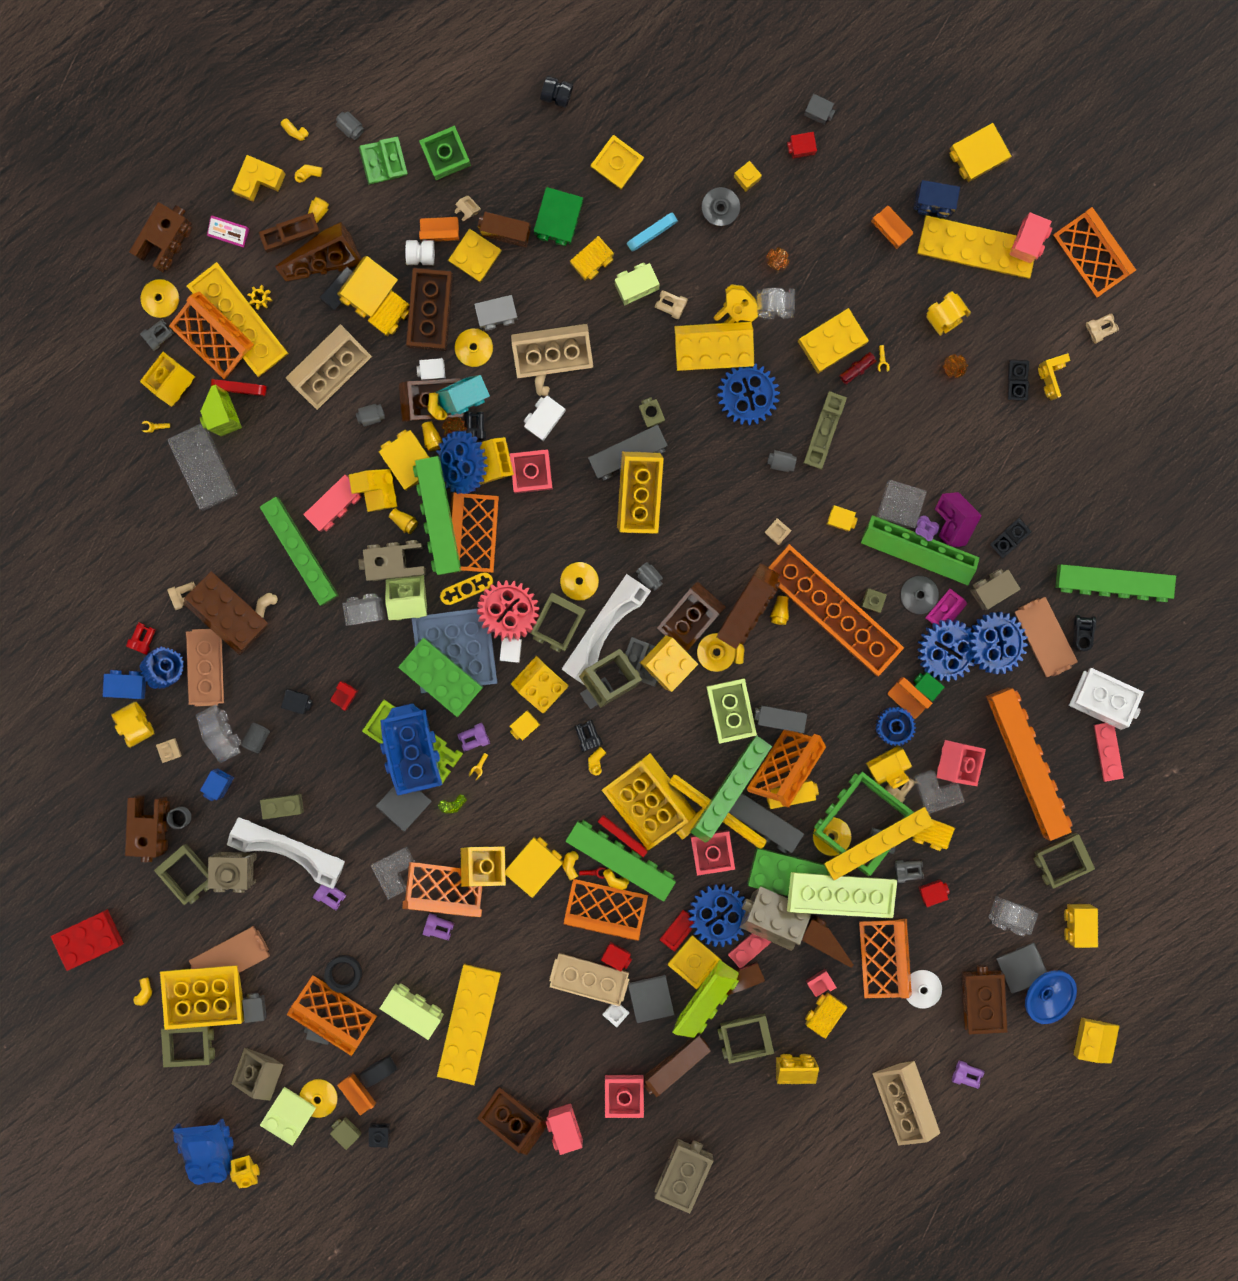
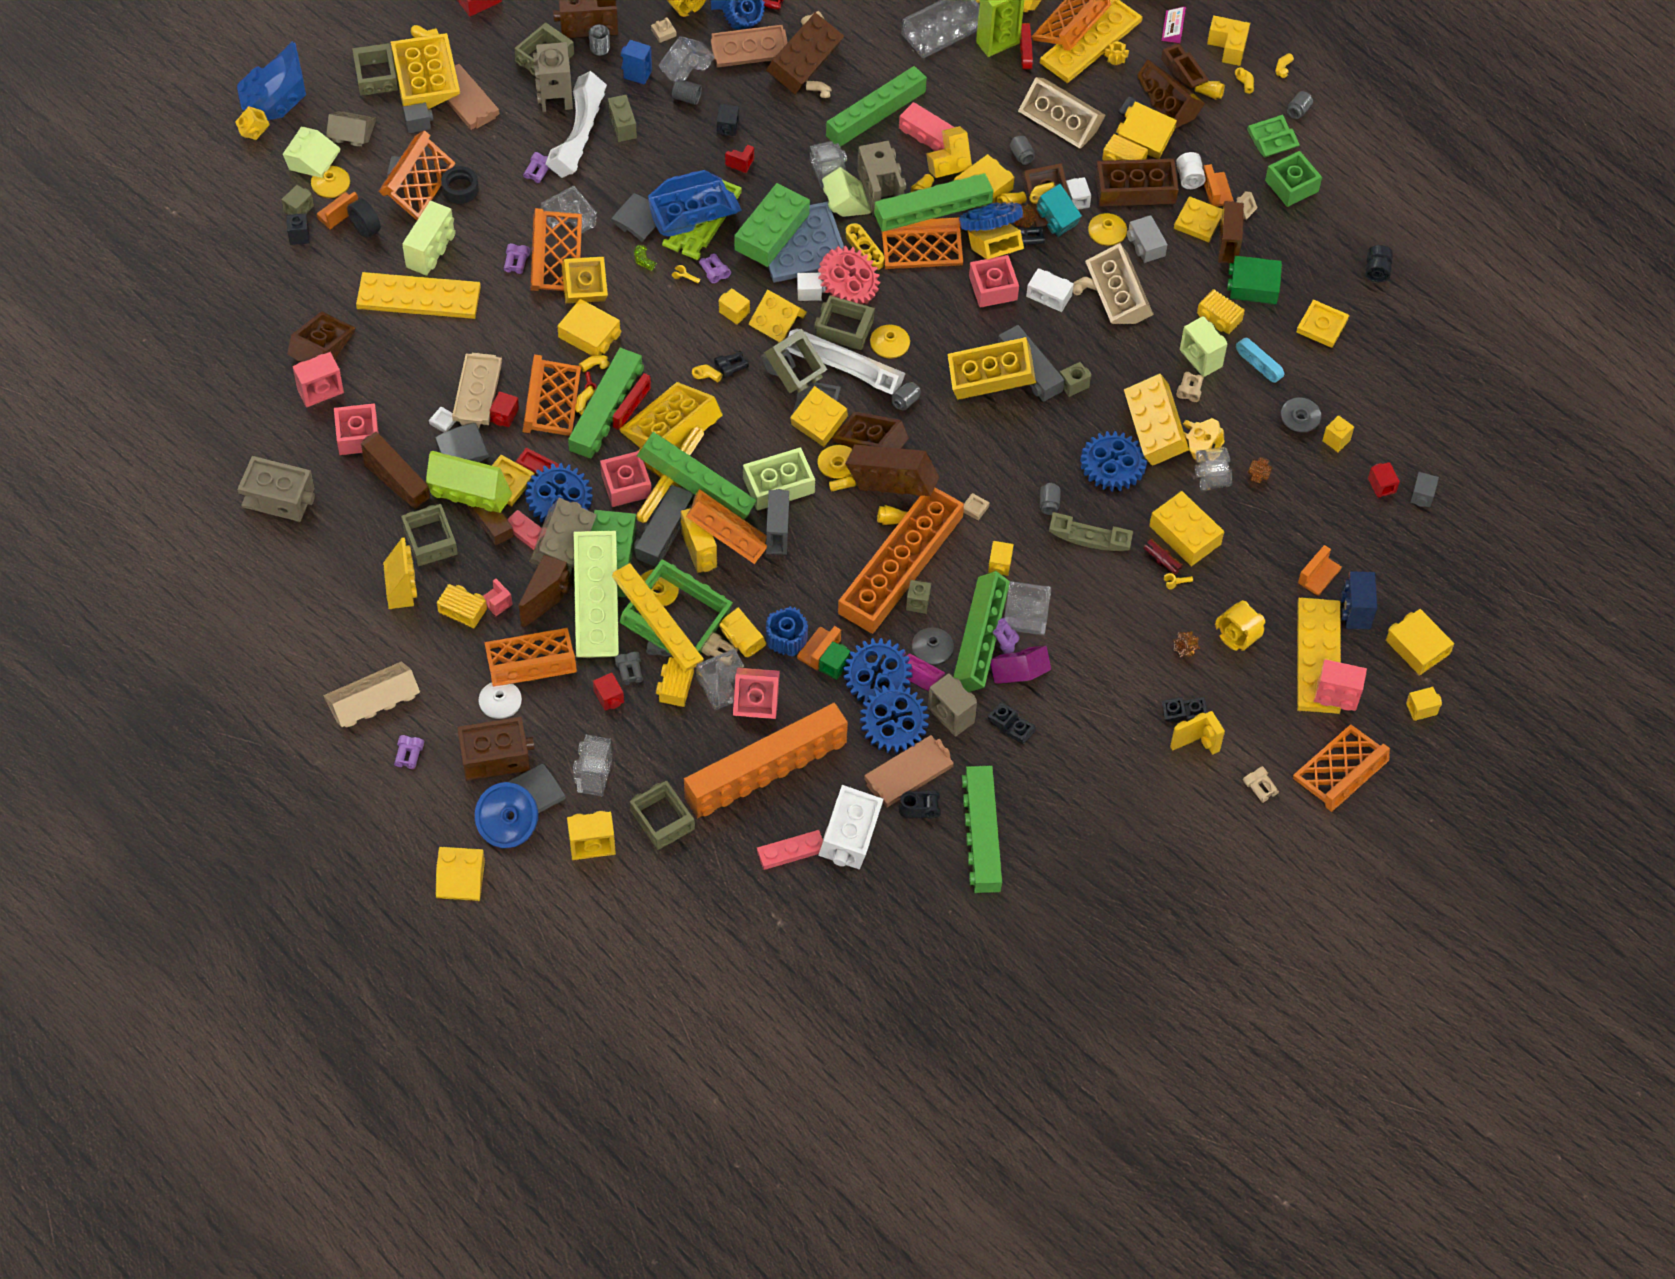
camera: 70 degrees right, 30 degrees down
(1044, 163) = (1423, 703): none -> yellow brick

